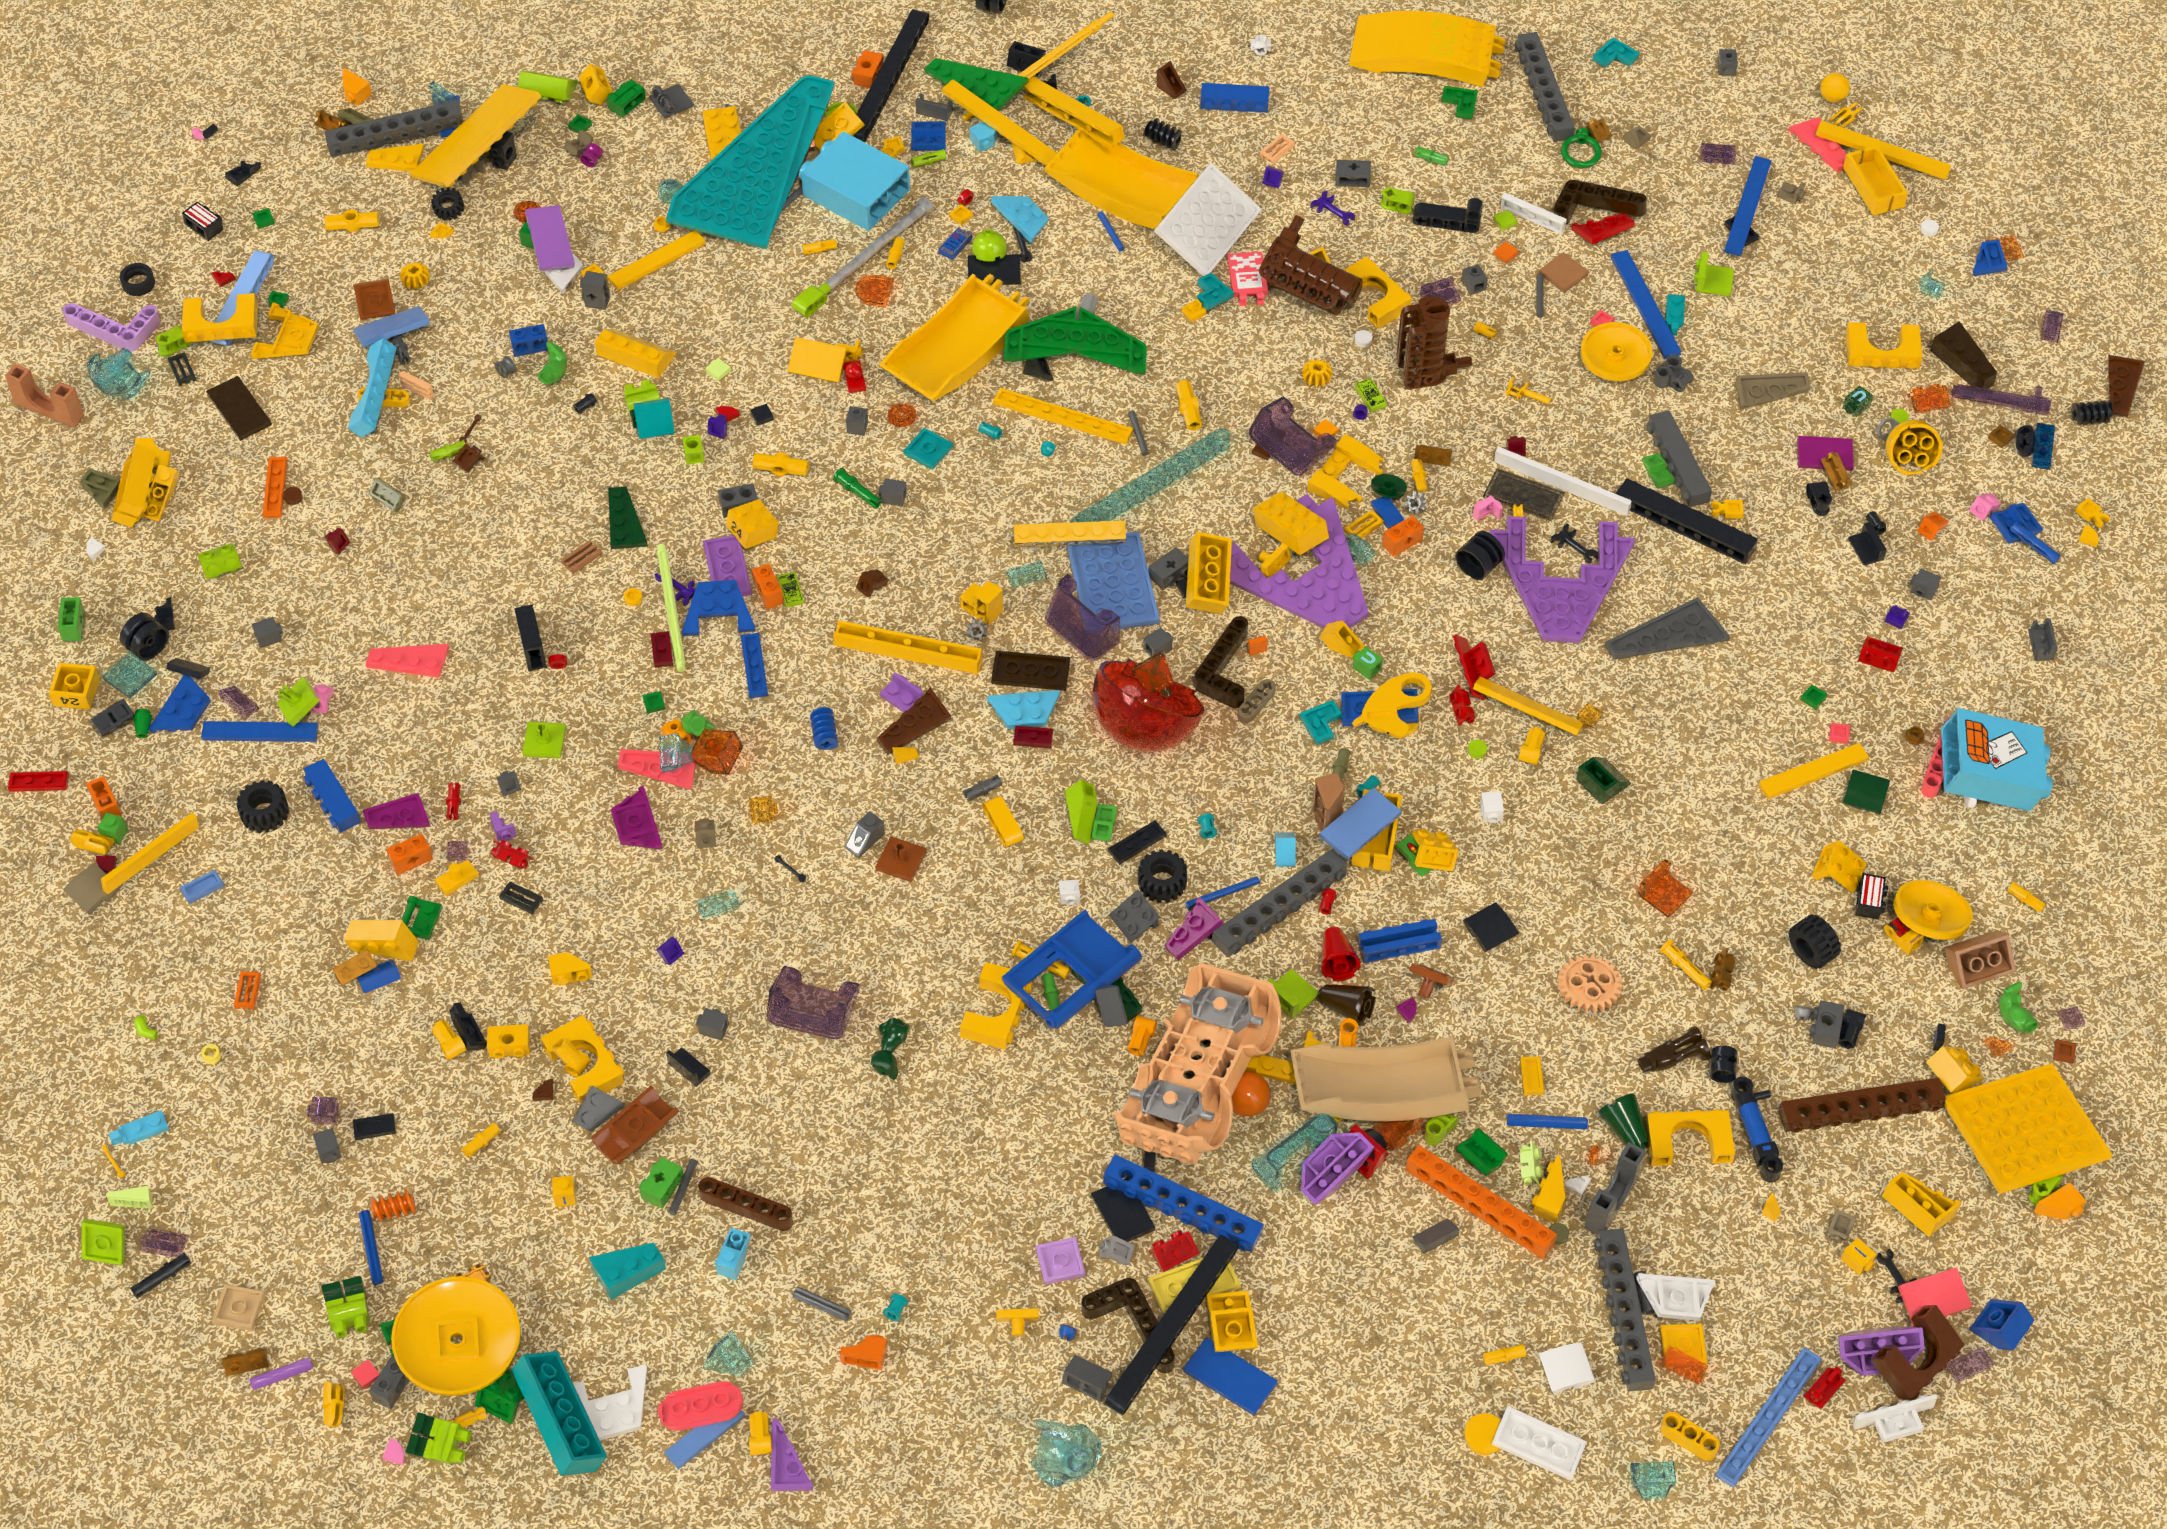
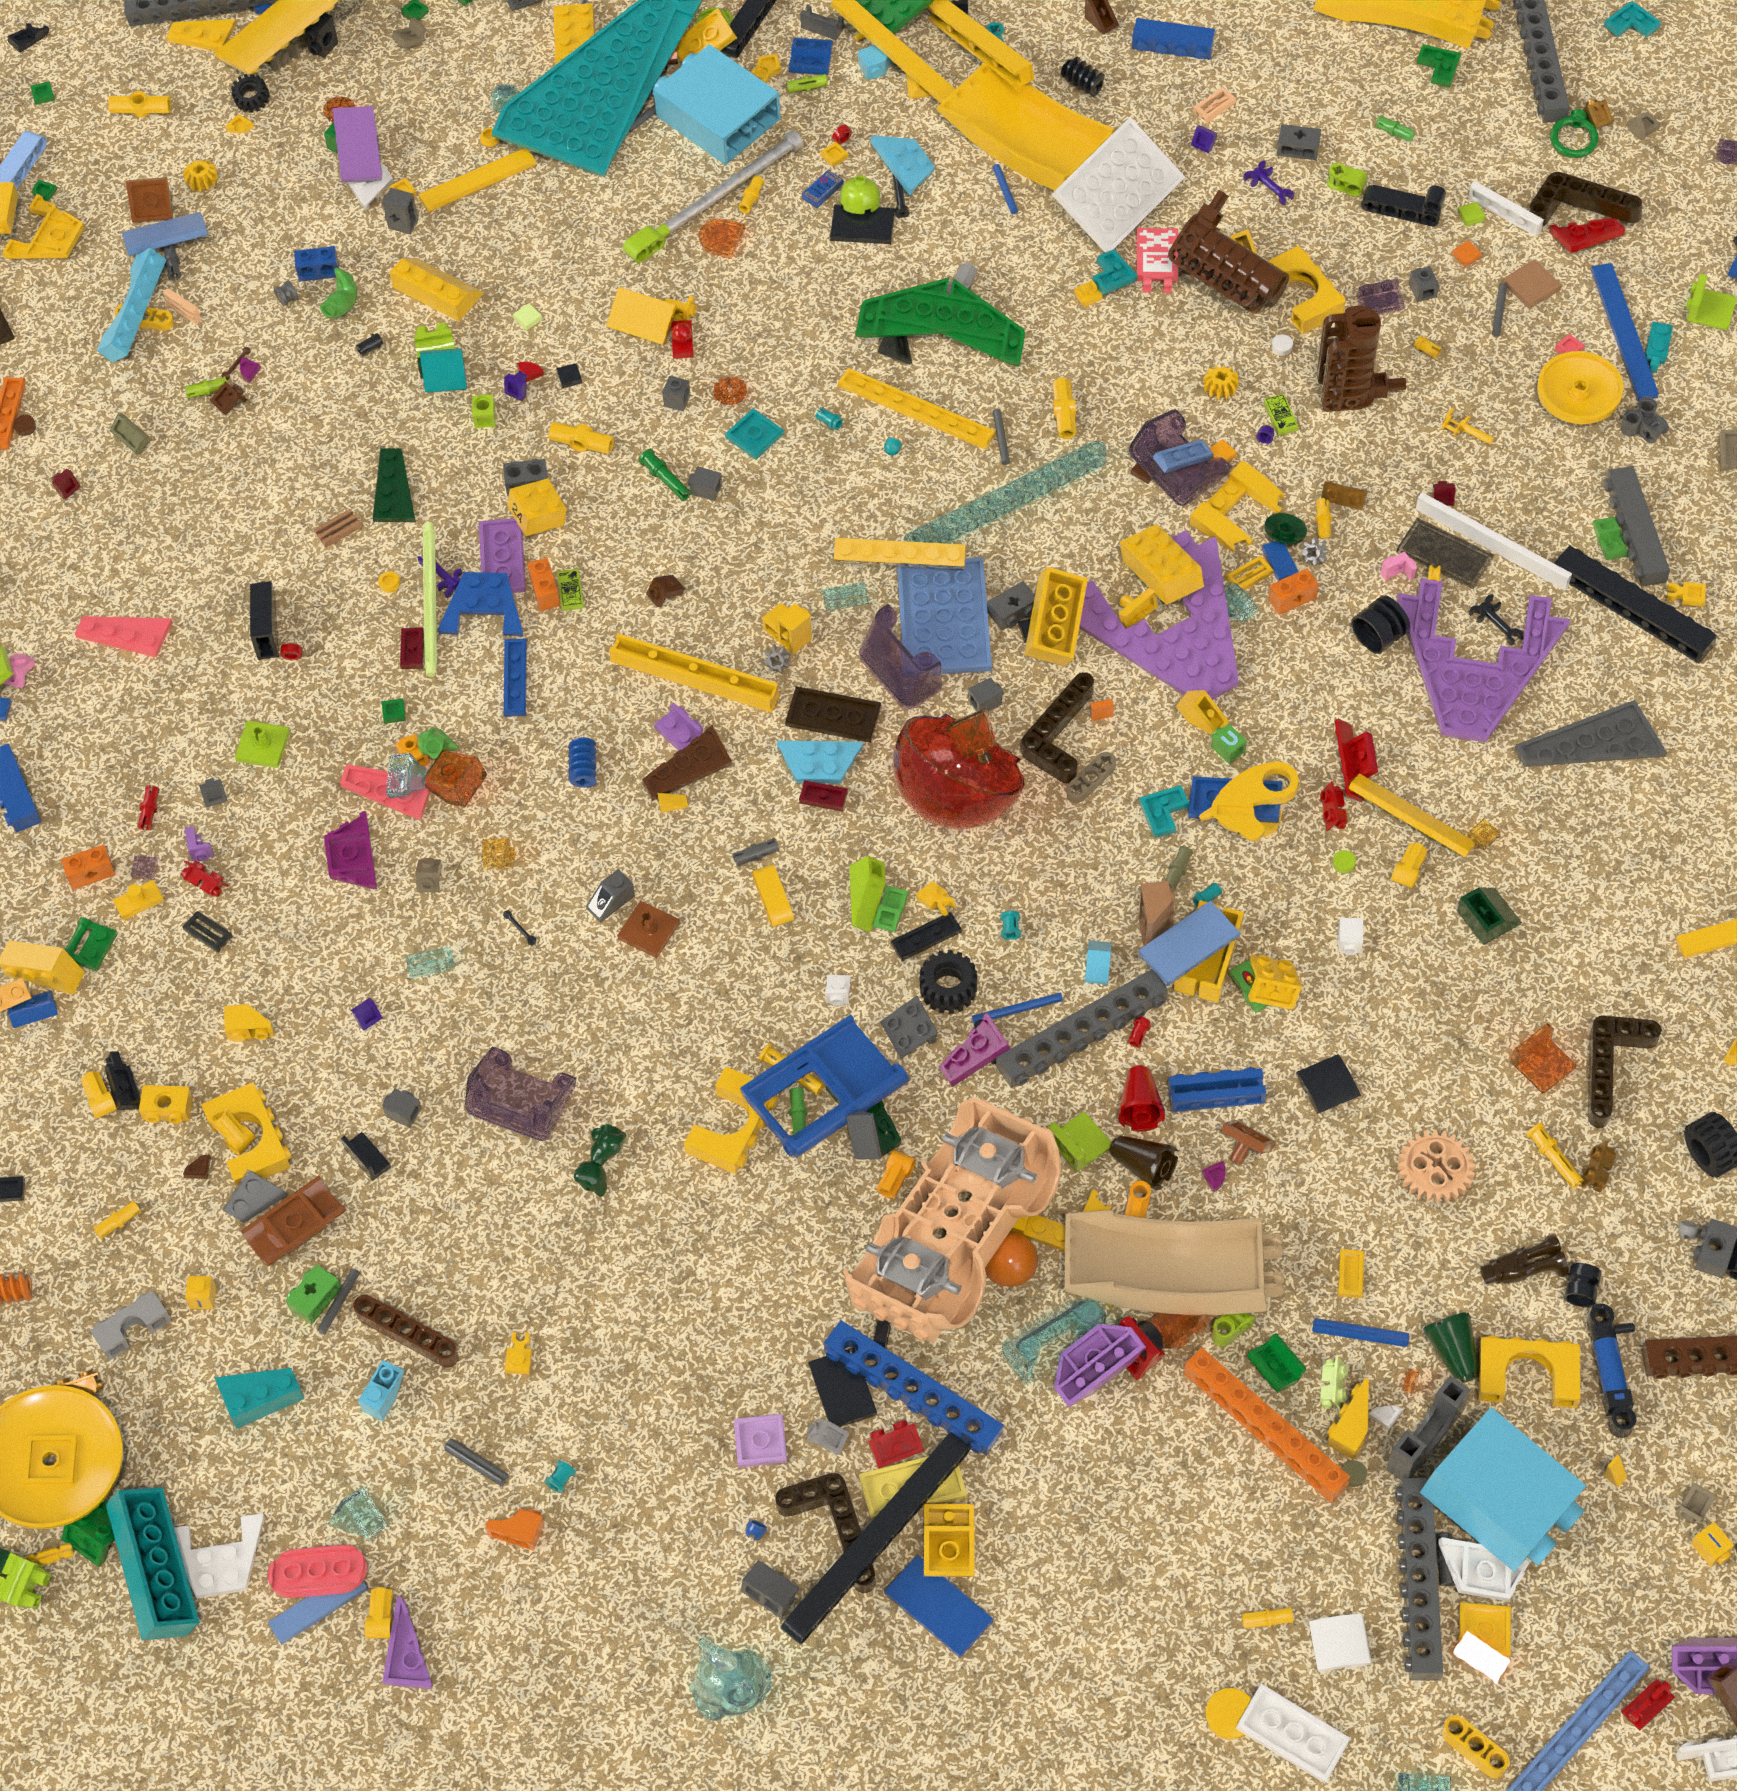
camera: 10 degrees right, 5 degrees up
(399, 813) = (83, 817): magenta wing -> none
(482, 432) = (249, 369): none -> magenta tile
(518, 1211) = (144, 1311): none -> light grey arch
(590, 156) = (421, 49): magenta wheel -> none
(818, 247) = (665, 179): yellow axle -> none
(844, 1215) = (518, 1358): none -> yellow plate
(957, 338) = (805, 305): yellow hinge -> none
(1017, 1318) = (699, 1507): yellow tile -> none
(1140, 809) = (935, 896): none -> yellow plate
(1295, 434) = (1183, 456): none -> medium blue tile
(1436, 1235) = (1208, 1459): dark grey slope -> none
(1685, 1231) = (1505, 1491): none -> medium azure brick
(1714, 869) = (1605, 1061): none -> dark brown beam

